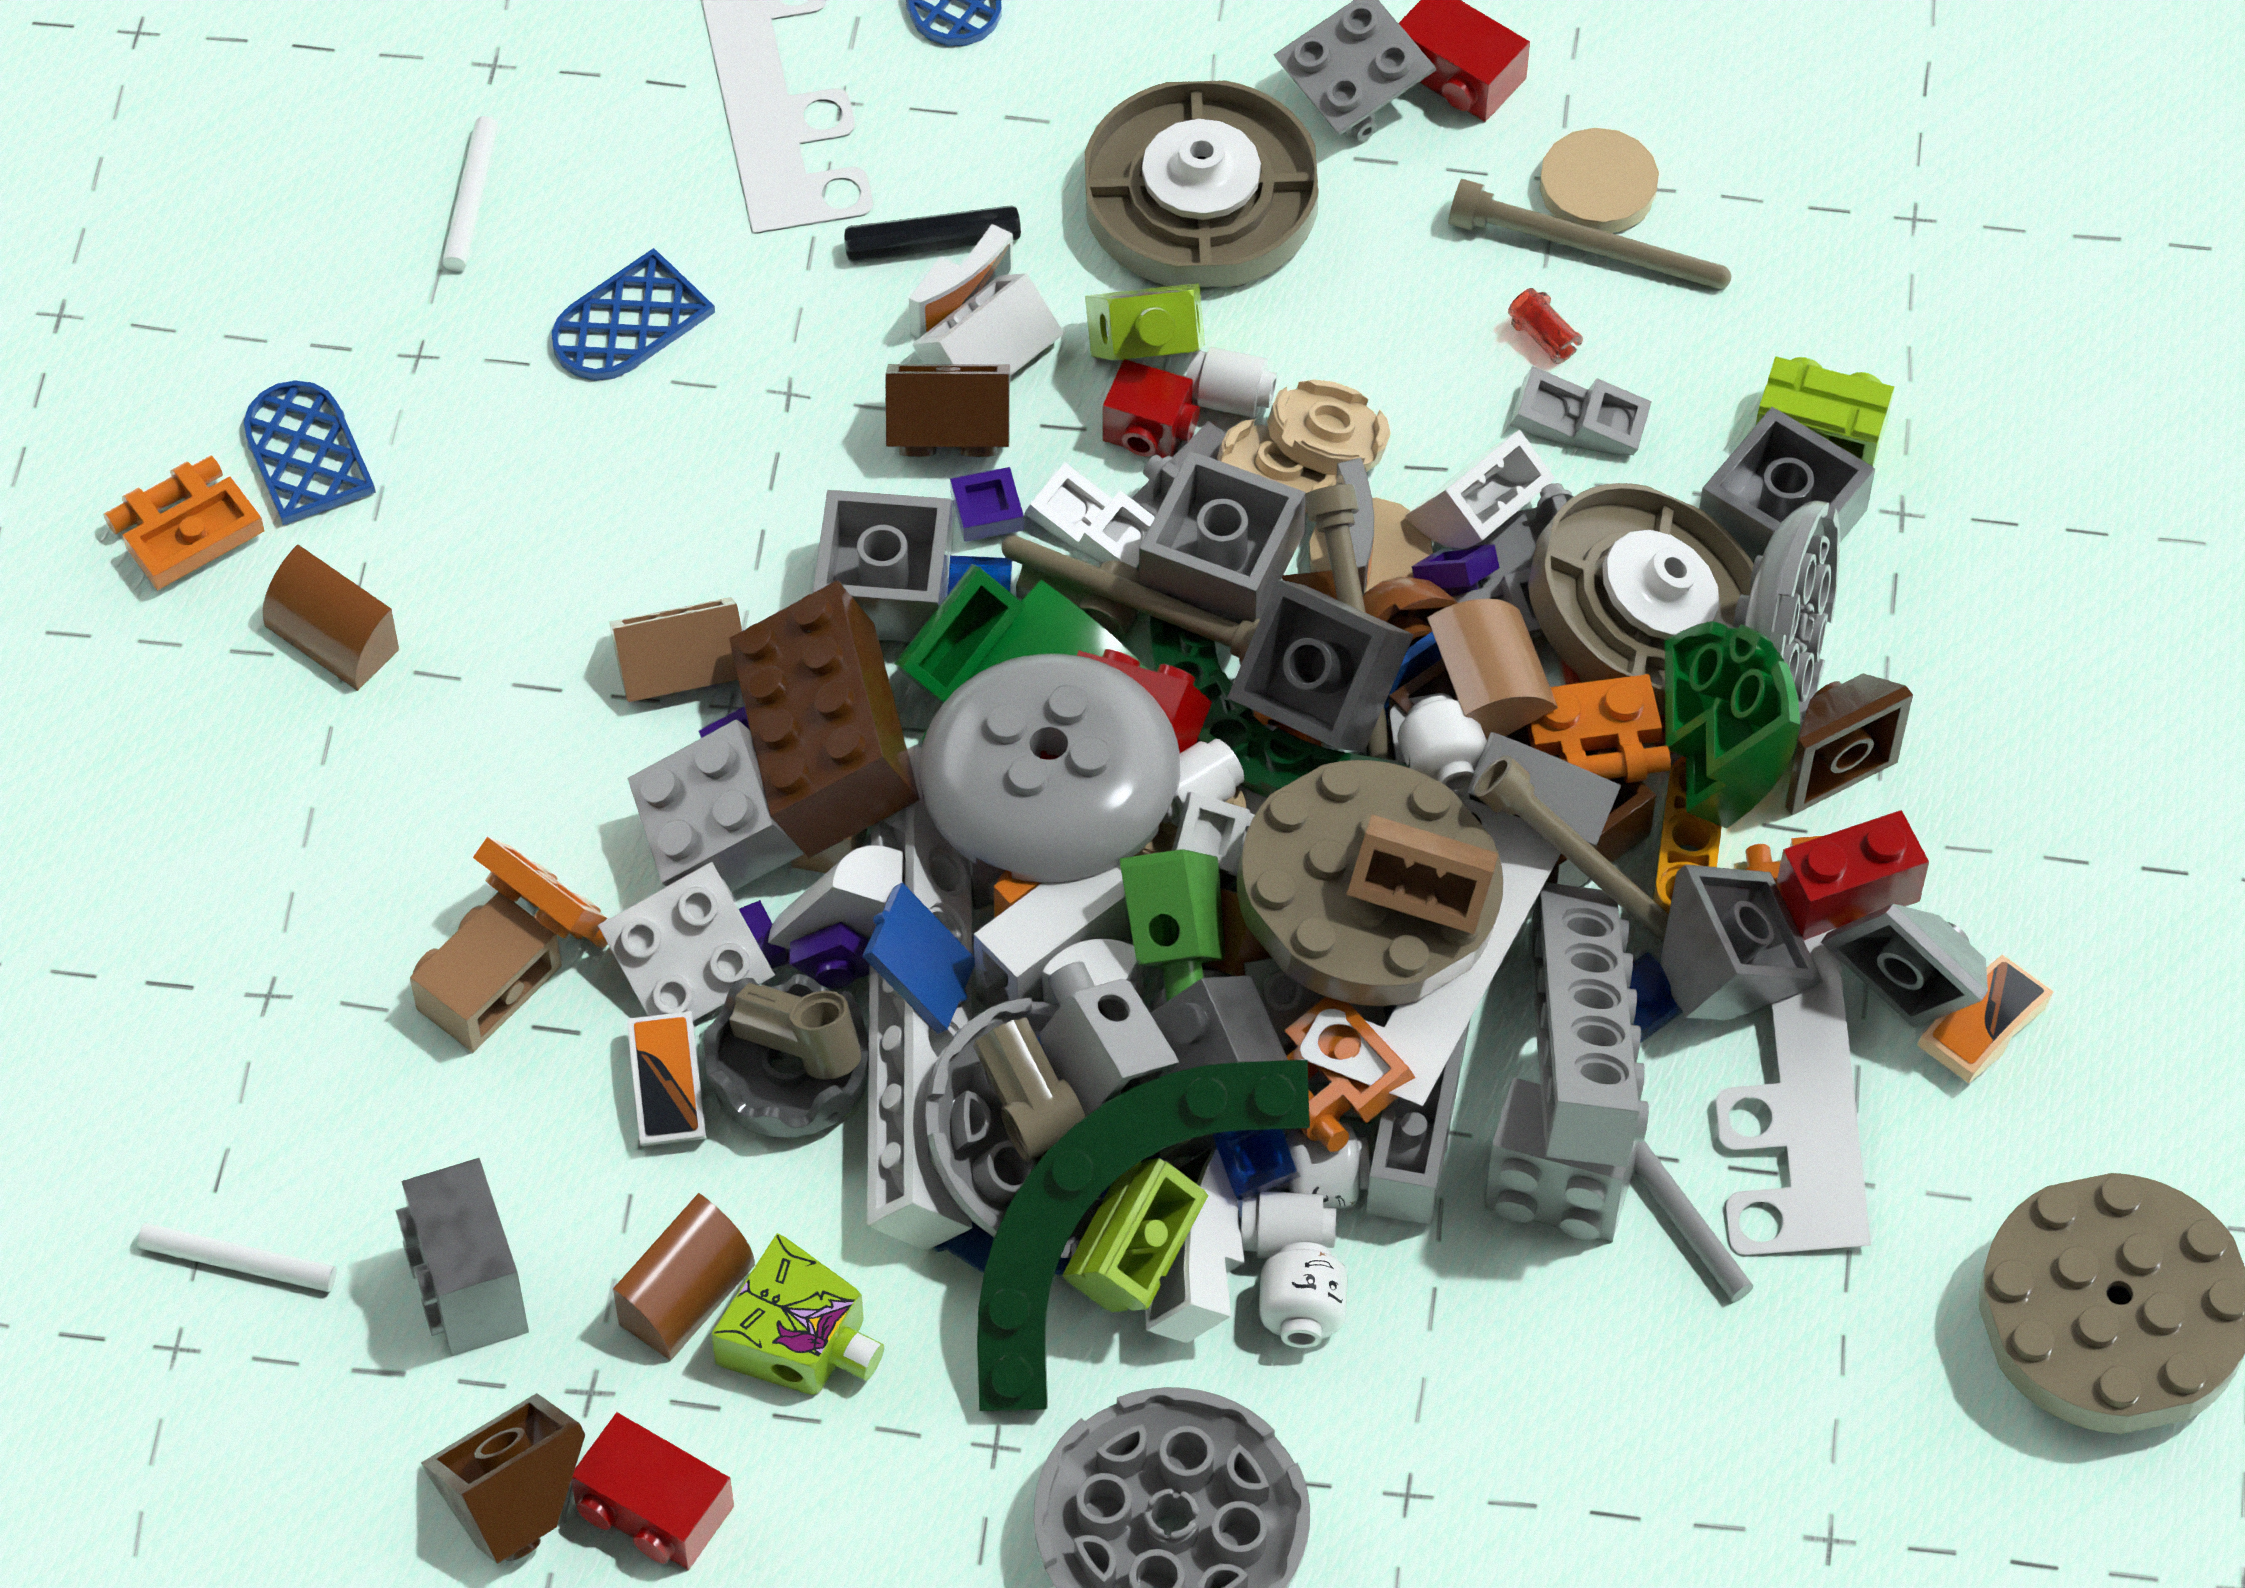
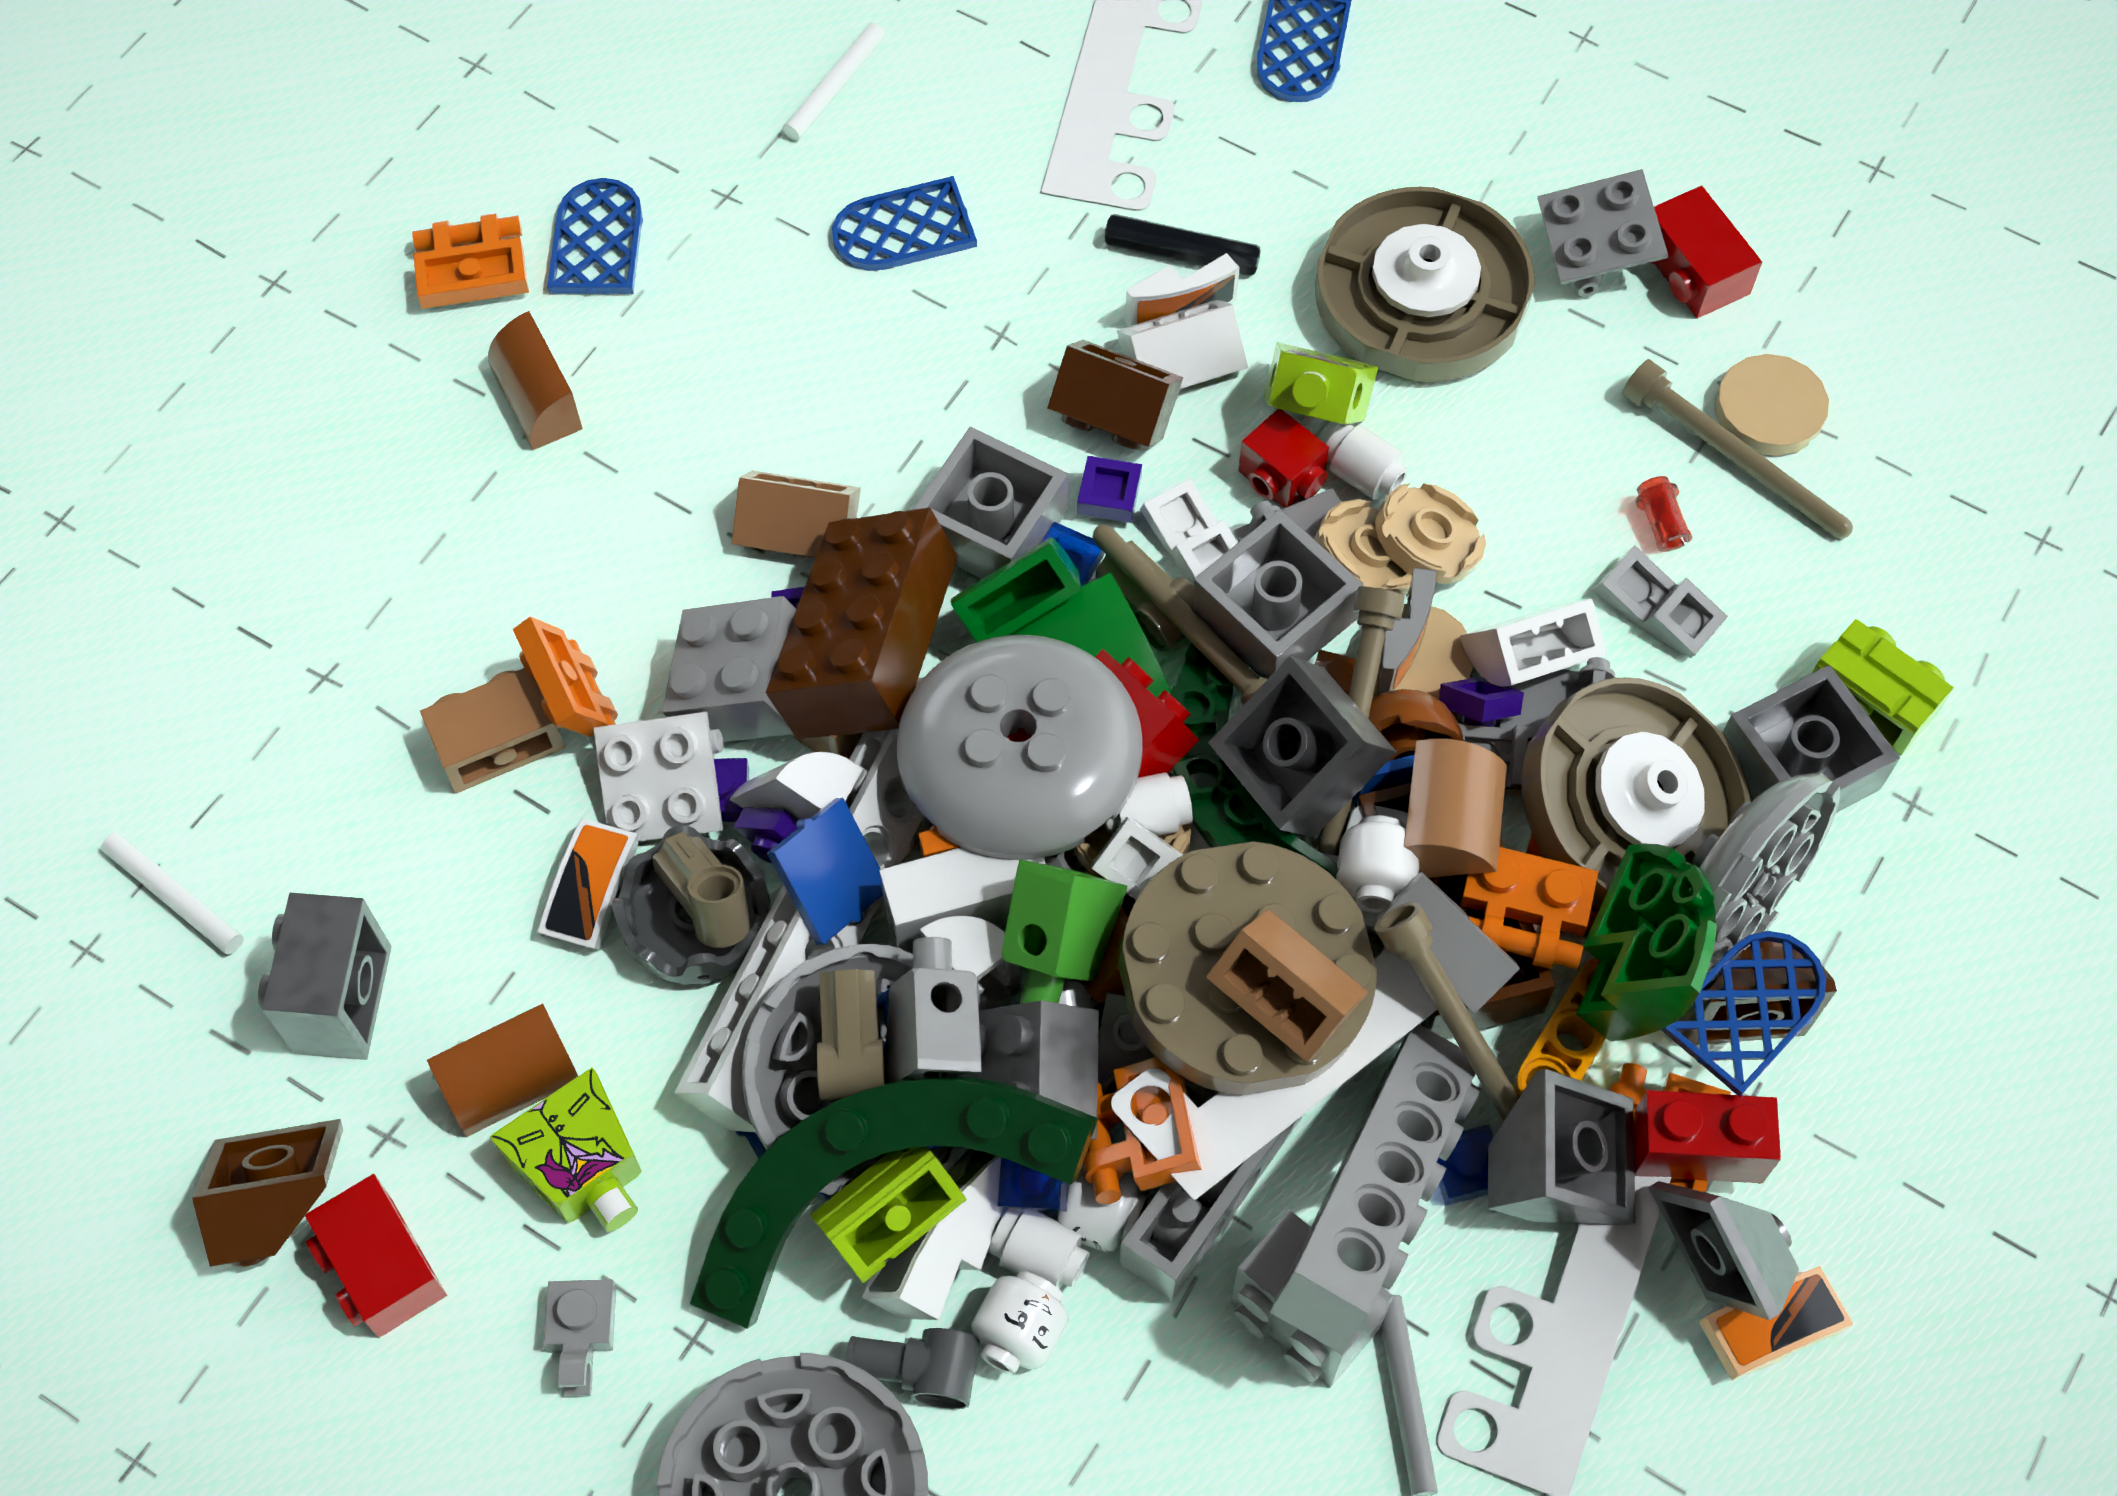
camera: 25 degrees right, 5 degrees up
(883, 1473) = (576, 1324): none -> light grey plate
(1241, 1367) = (934, 1368): none -> dark grey pin
(1826, 798) = (1707, 1058): none -> blue window

